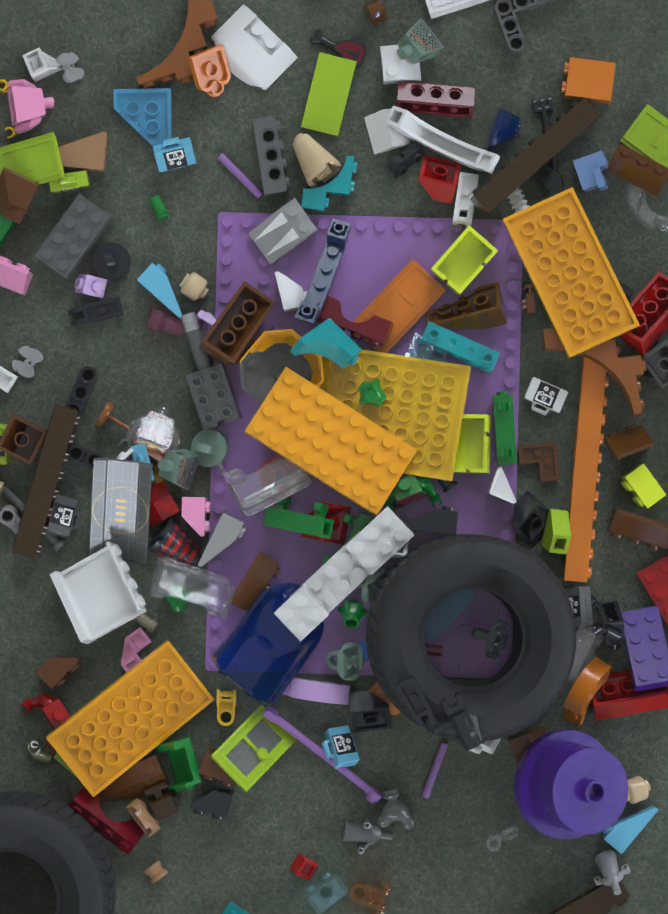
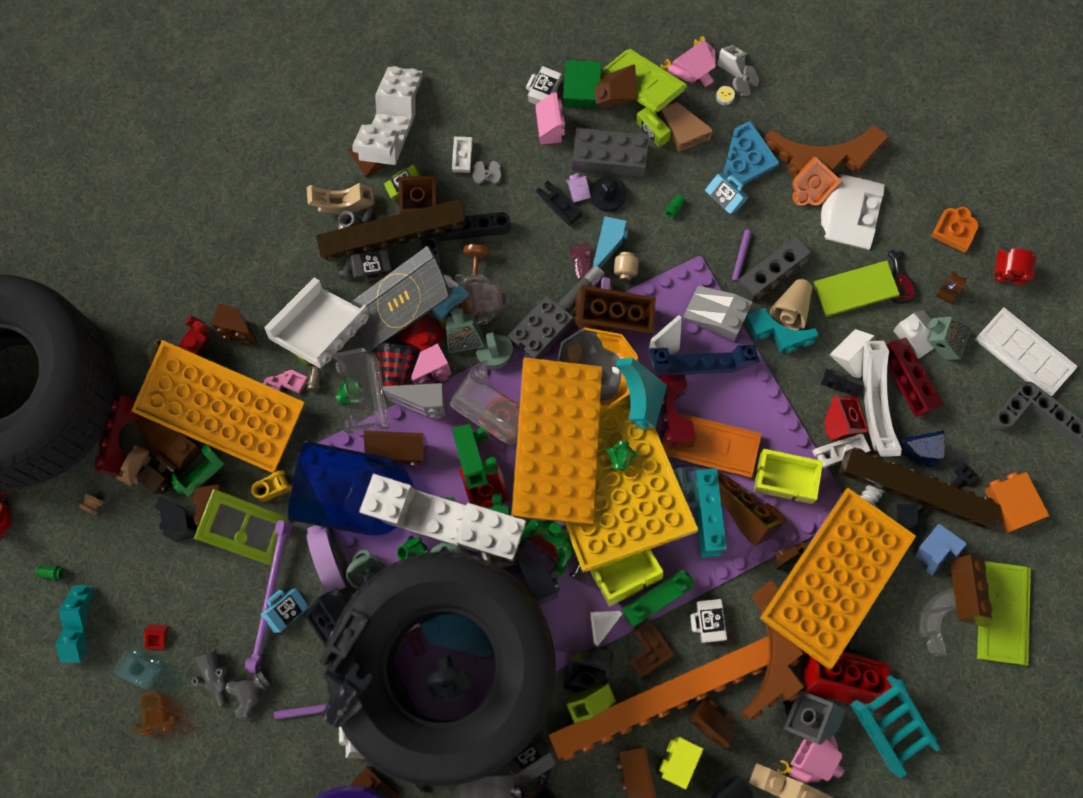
camera: 70 degrees right, 15 degrees down
(72, 94) = (725, 95): none -> light yellow tile

